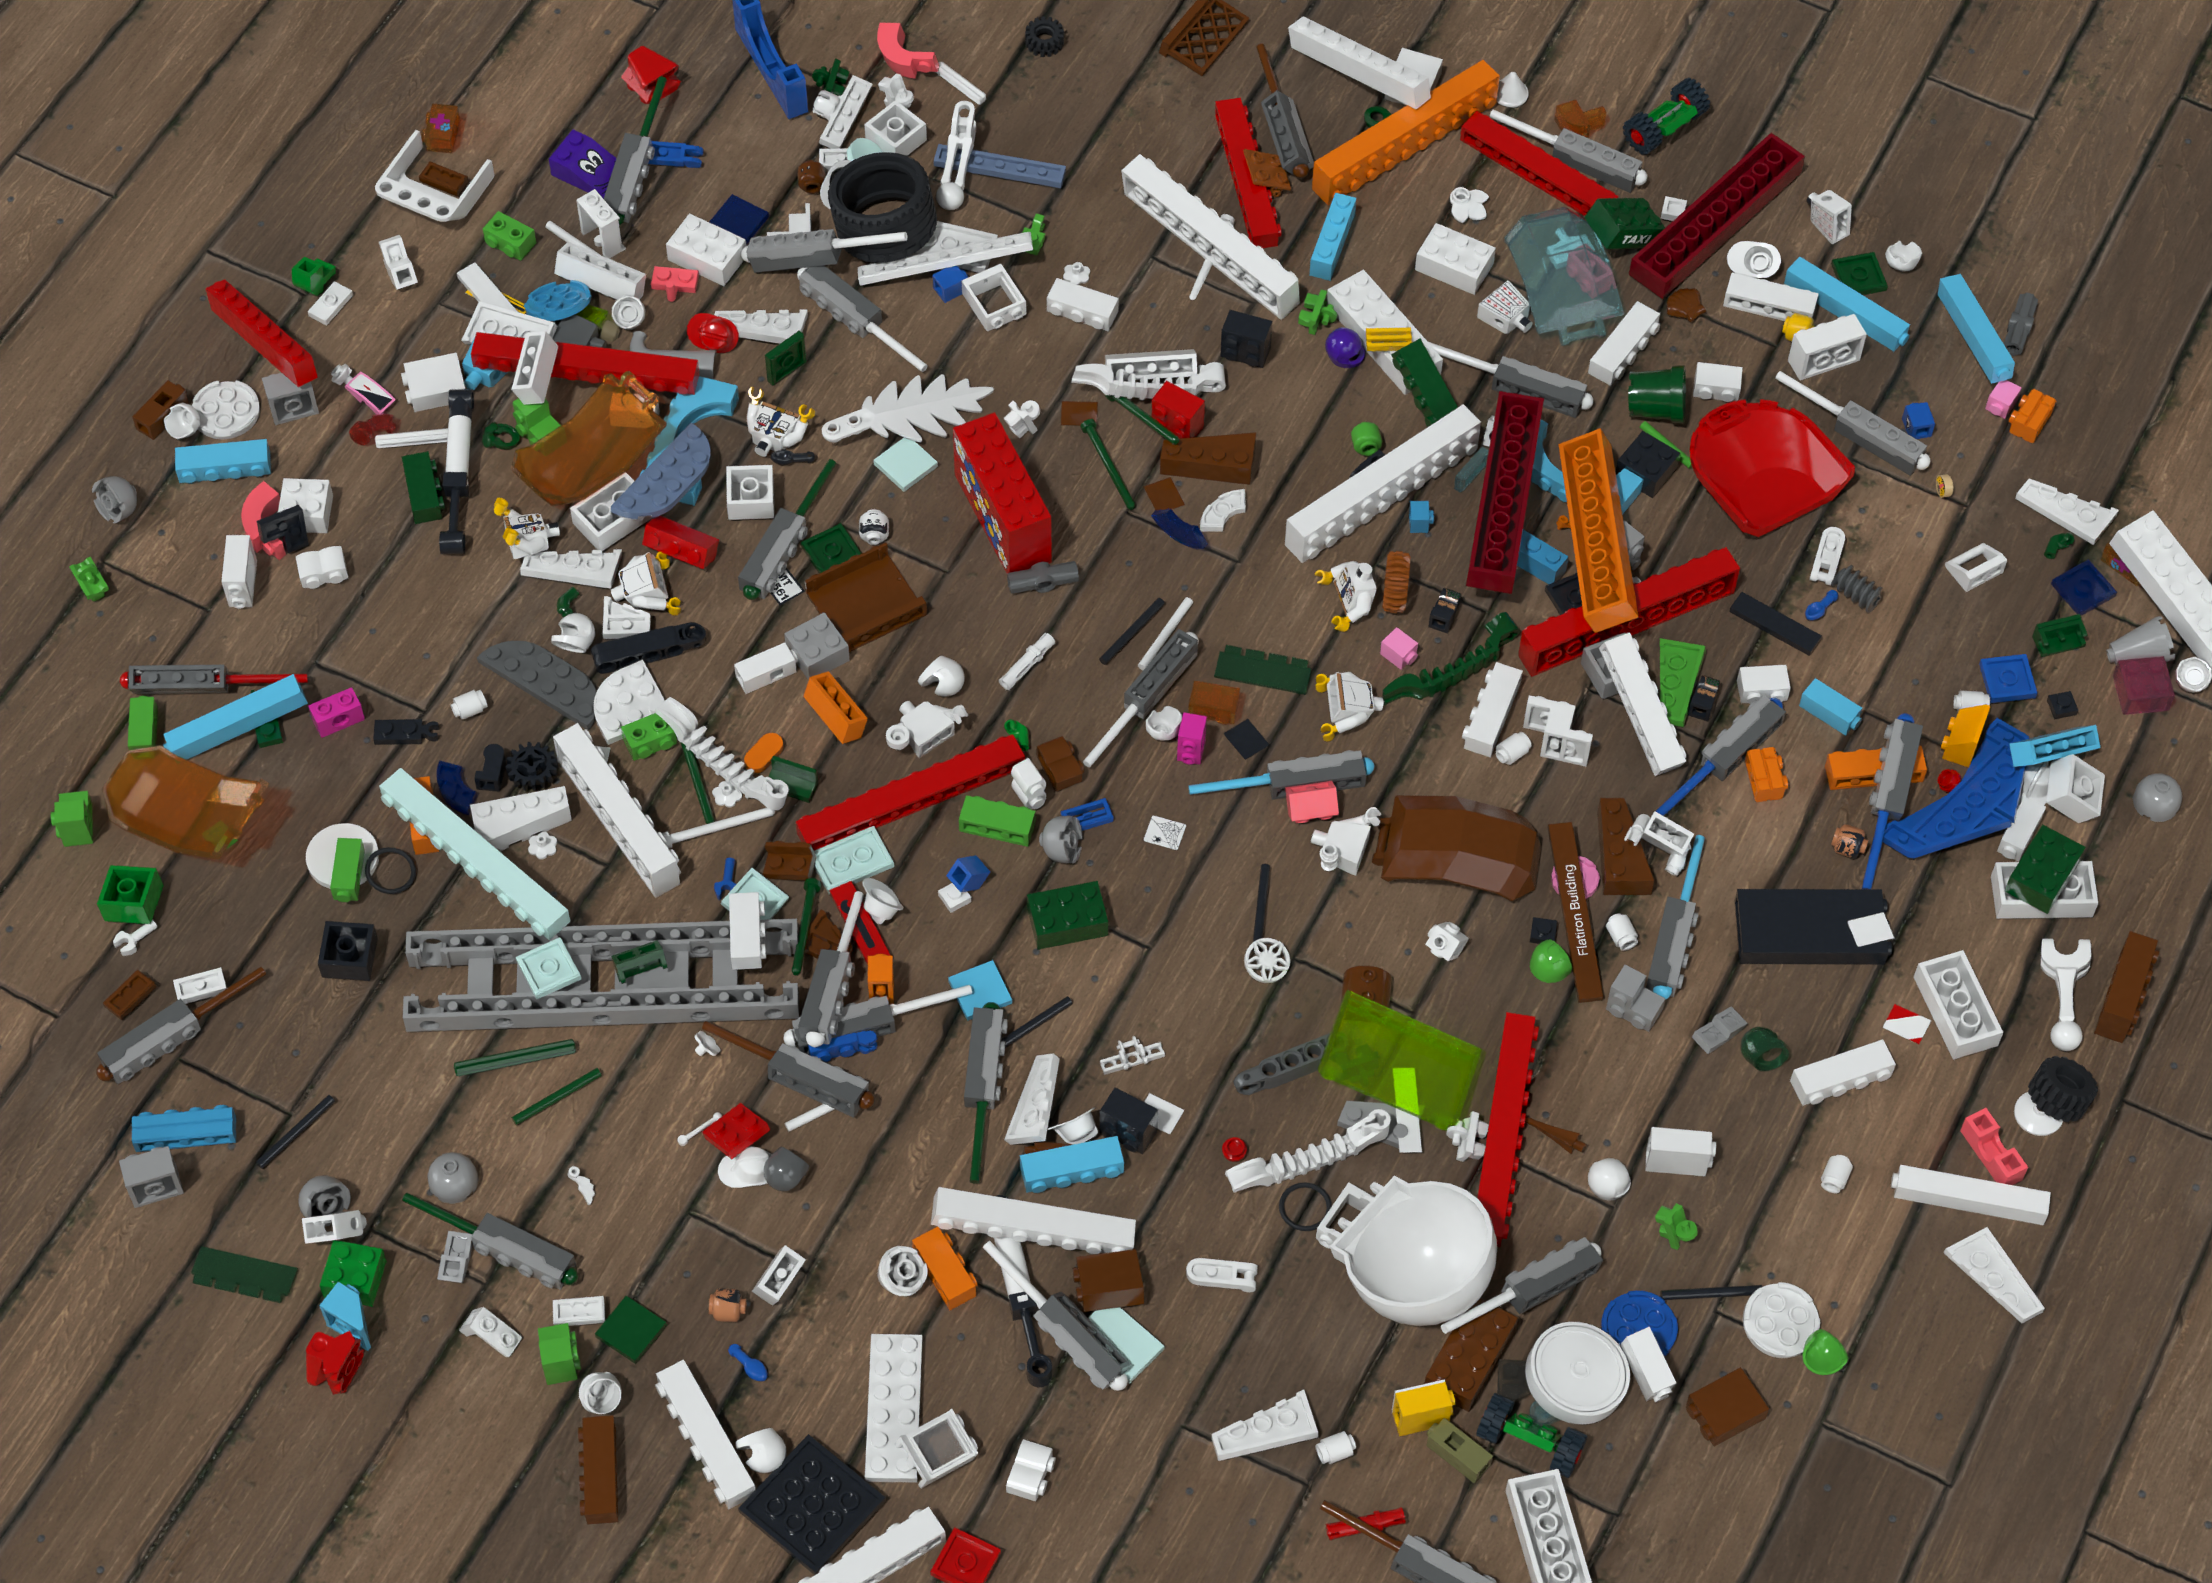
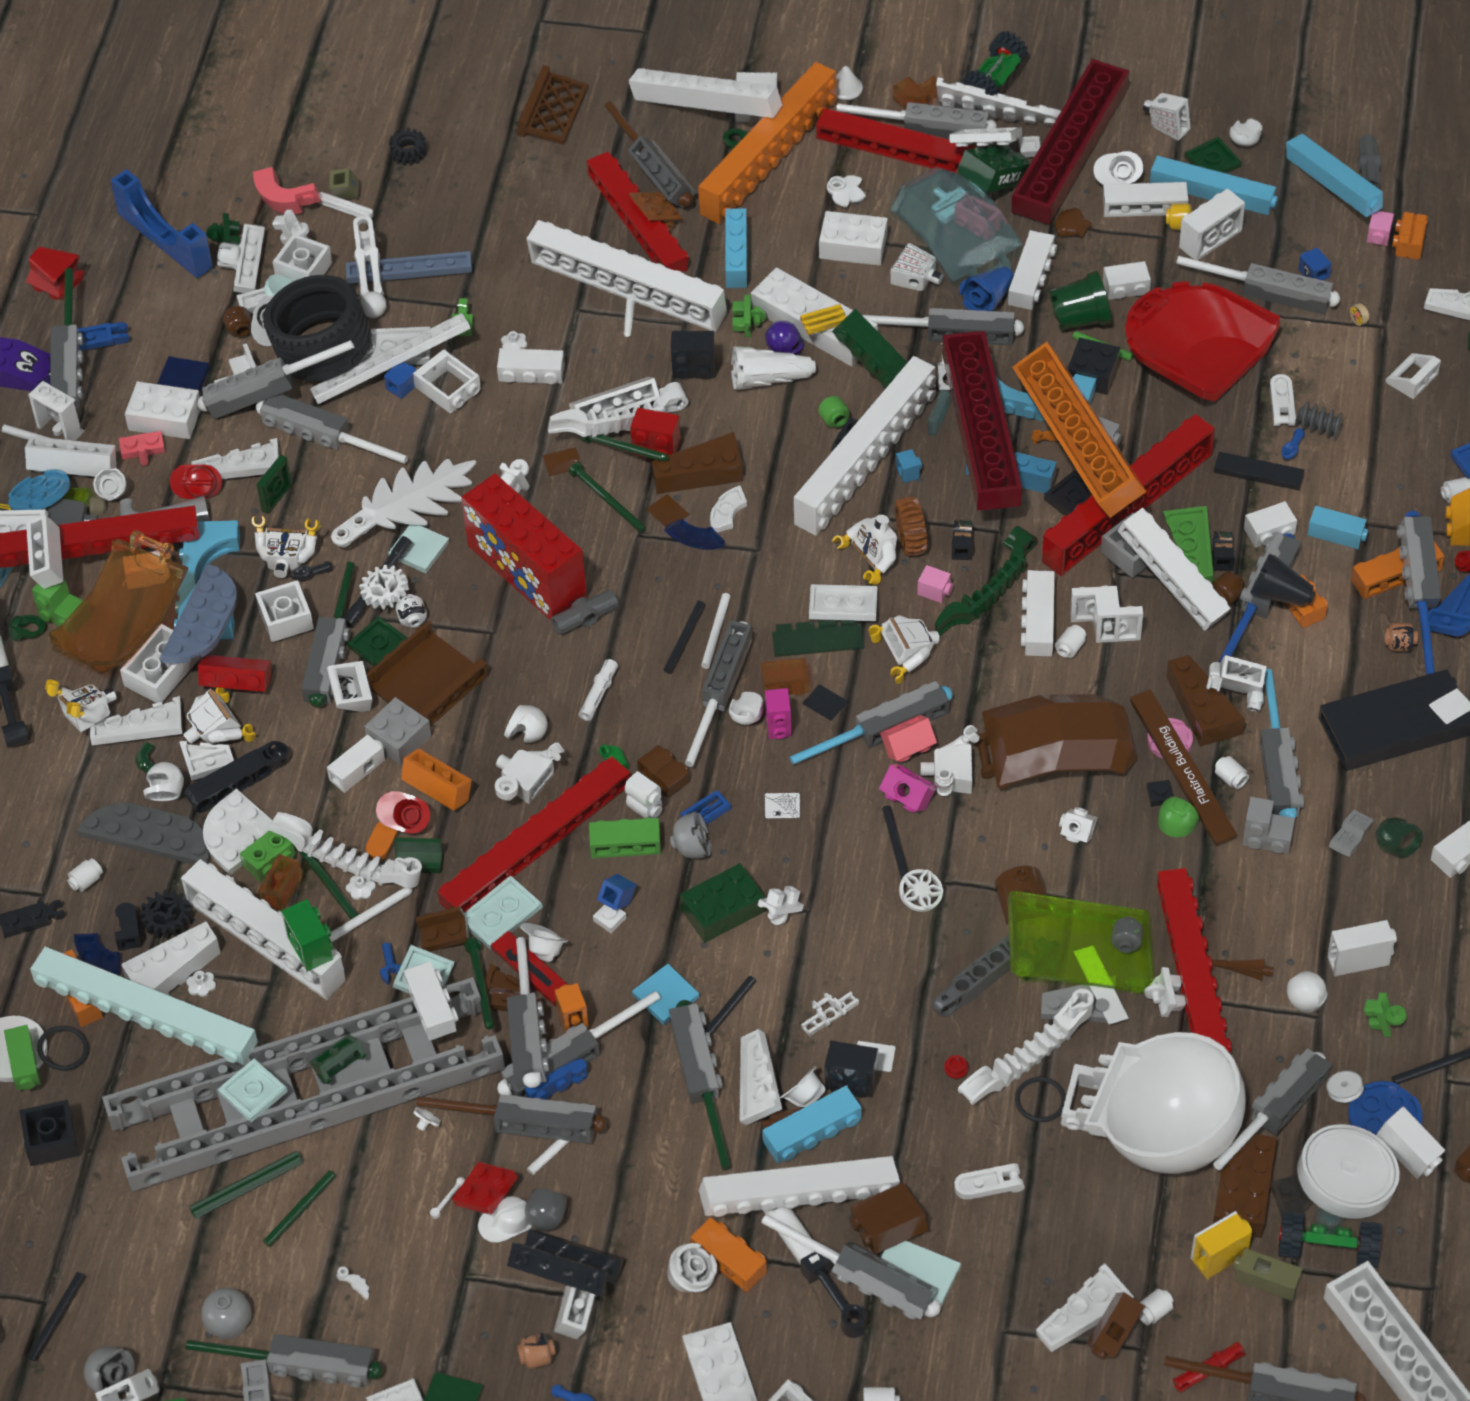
camera: 15 degrees left, 5 degrees down
(649, 768) = (281, 882): none -> clear orange brick
(649, 831) = (307, 934): none -> green brick
(783, 1228) = (565, 1262): none -> black fence
(791, 731) = (403, 812): none -> red piece
(793, 571) = (357, 671): none -> white tile
(854, 495) = (395, 587): none -> white gear
(879, 465) = (397, 553): none -> black piece
(965, 60) = (344, 183): none -> olive brick
(1122, 935) = (781, 904): none -> white hips
(1287, 1455) = (1114, 1326): none -> reddish brown brick
(1301, 641) = (843, 602): none -> white tile
(1303, 856) = (920, 788): none -> dark pink brick
(1315, 373) = (764, 367): none -> white cone
(1450, 1067) = (1127, 934): none -> dark grey head
(1569, 351) = (986, 289): none -> blue cone
(1613, 1278) = (1353, 1084): none -> white piece
(1624, 186) = (985, 136): none -> white plate
(1652, 156) = (998, 106): none -> white wing
(1693, 738) = (1229, 586): none -> reddish brown head
(1745, 751) = (1282, 583): none -> black cone

